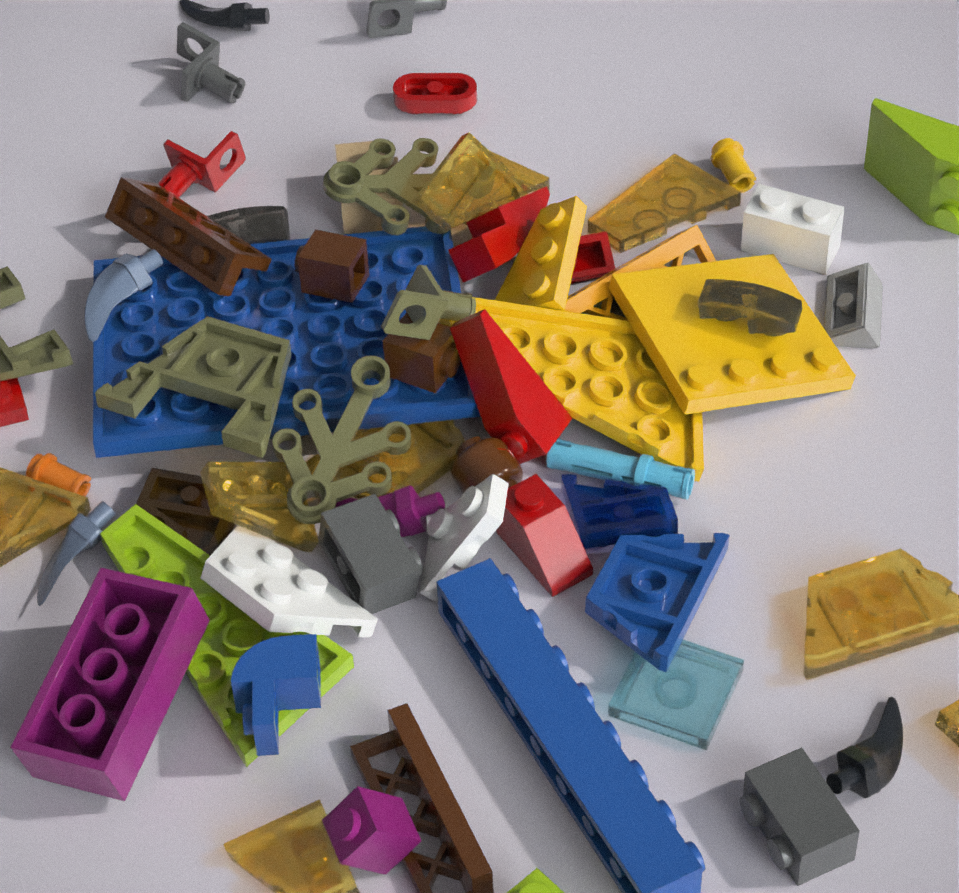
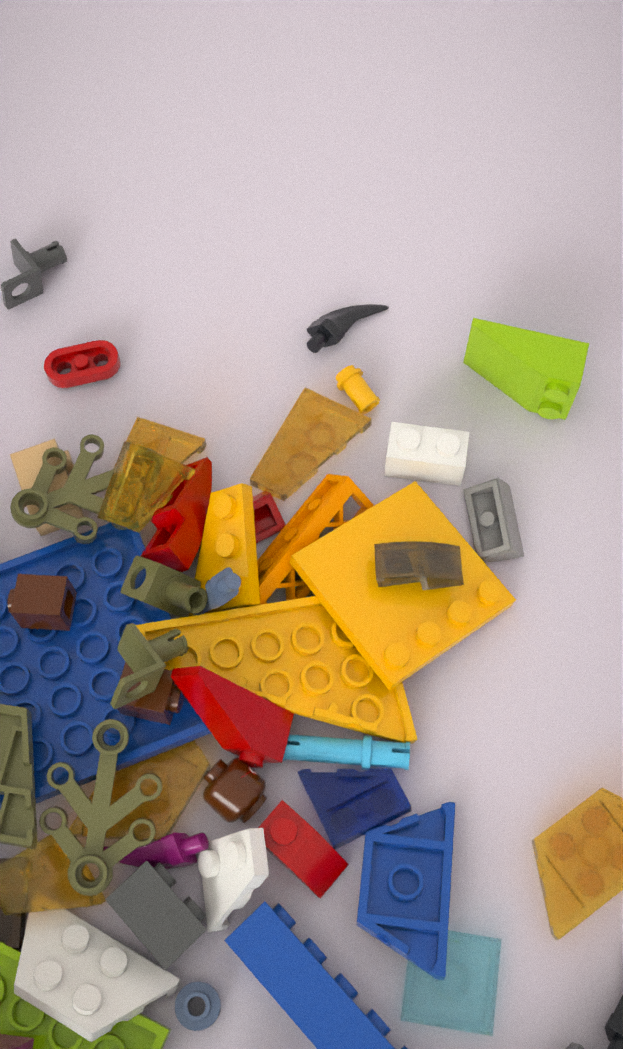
camera: 15 degrees left, 20 degrees up
(390, 661) = (212, 1009): none -> sand blue plate
(468, 273) = (165, 588): none -> olive bracket
(526, 276) = (221, 589): none -> sand blue bar
(716, 109) = (332, 326): none -> black bar

